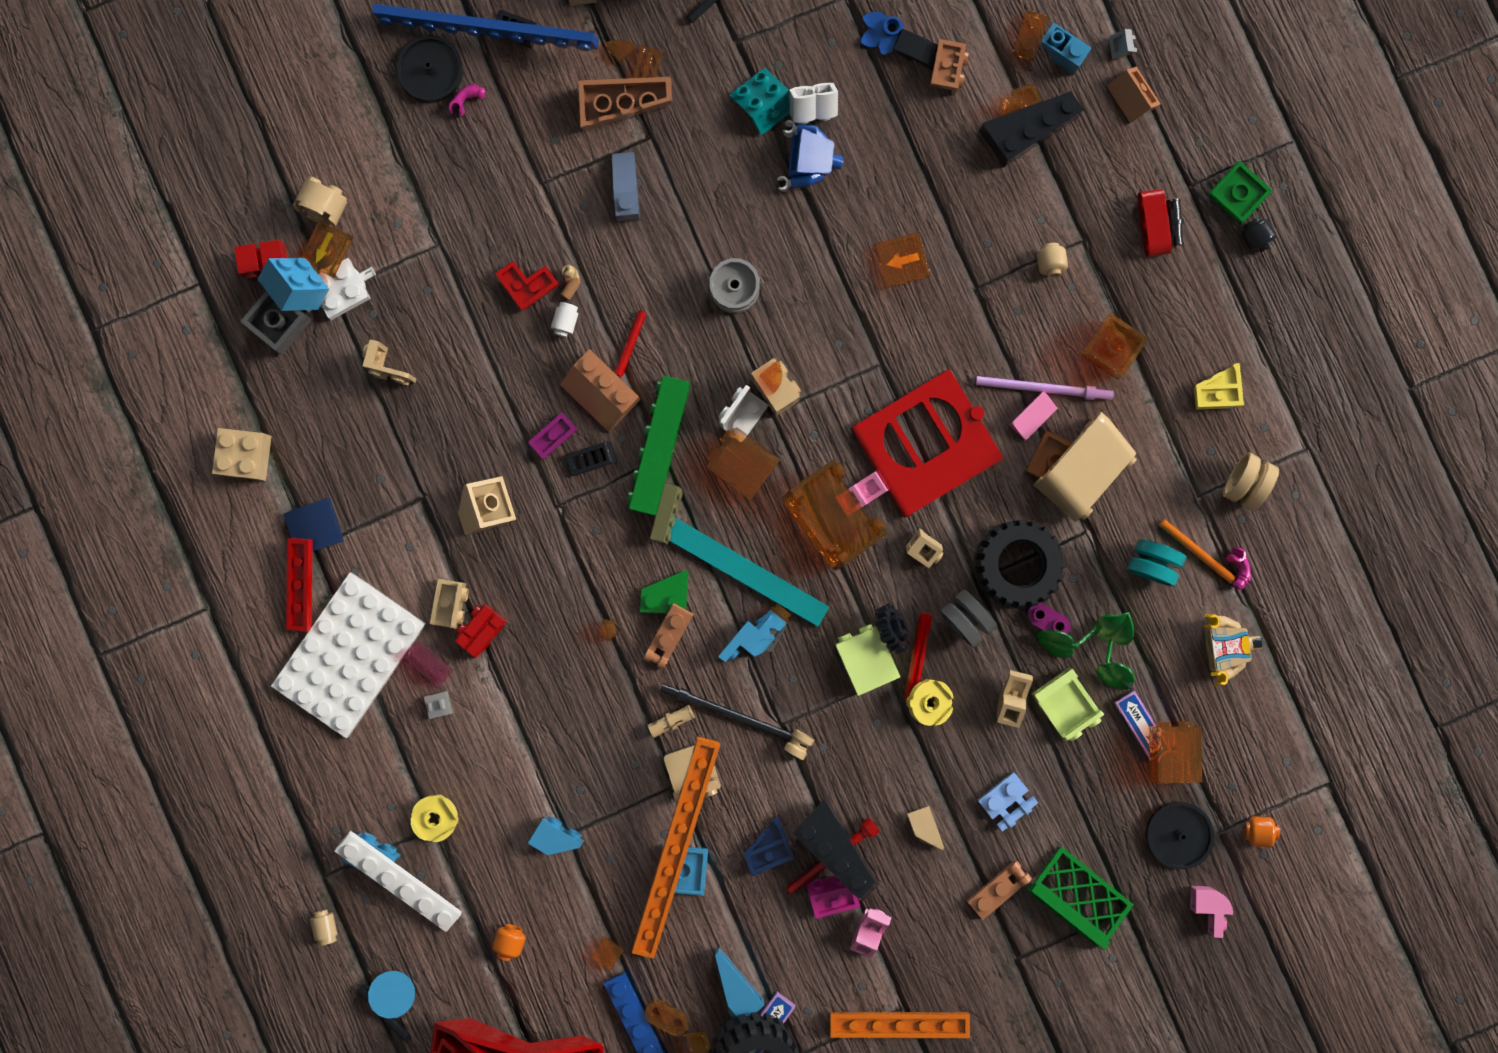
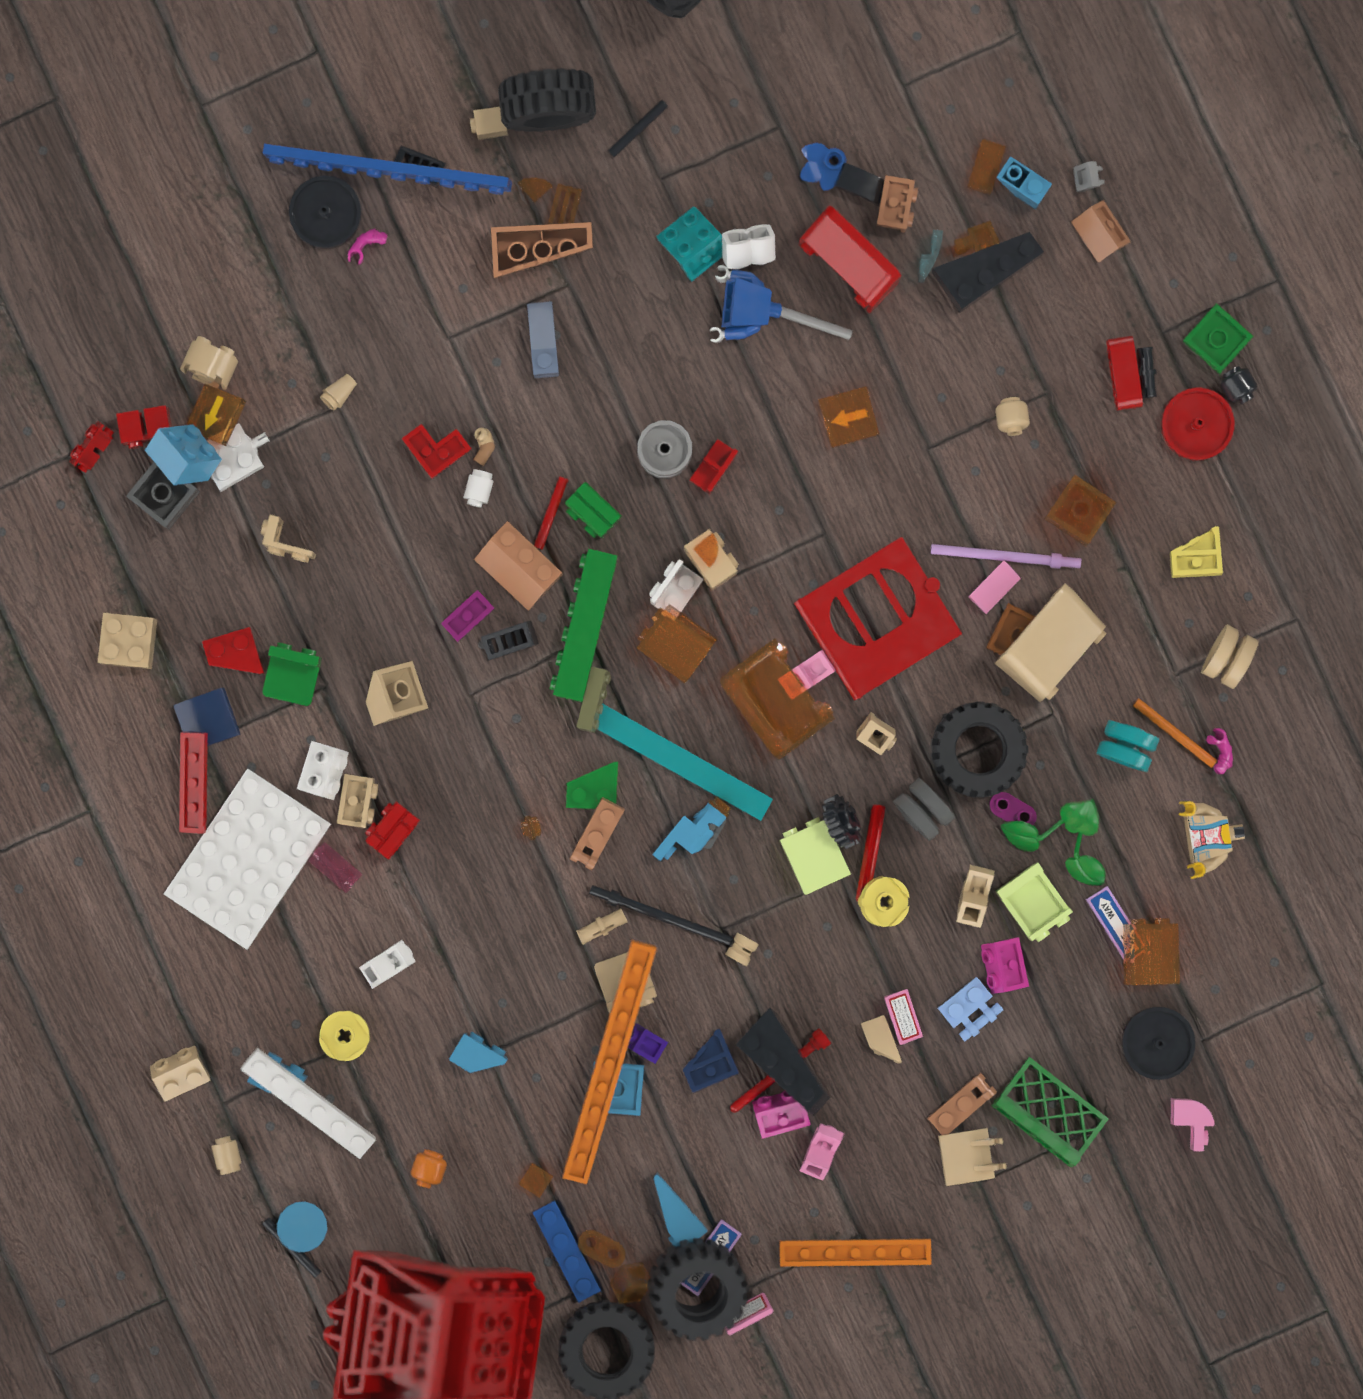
camera: 10 degrees left, 0 degrees up
(217, 270) = (94, 438): none -> red hinge
(282, 851) = (179, 1073): none -> tan bracket
(340, 465) = (234, 651): none -> red wing
(391, 487) = (291, 674): none -> green bracket
(417, 575) = (323, 770): none -> white brick
(438, 231) = (338, 392): none -> tan cone
(438, 705) = (346, 912): light grey tile -> none
(473, 754) = (387, 964): none -> white brick
(668, 341) = (592, 510): none -> green brick
(710, 829) = (646, 1043): none -> dark purple bracket
(779, 303) = (713, 466): none -> red panel
(873, 174) = (816, 323): none -> light grey bar
(909, 110) = (851, 257): none -> windscreen
(946, 808) = (903, 1016): none -> slope
(976, 117) = (928, 260): none -> clear light blue slope
(1004, 938) = (968, 1156): none -> tan plate
(1039, 762) = (1004, 965): none -> dark pink bracket
(1220, 270) = (1197, 424): none -> red piece
(1261, 831) = (1246, 1037): orange head -> none

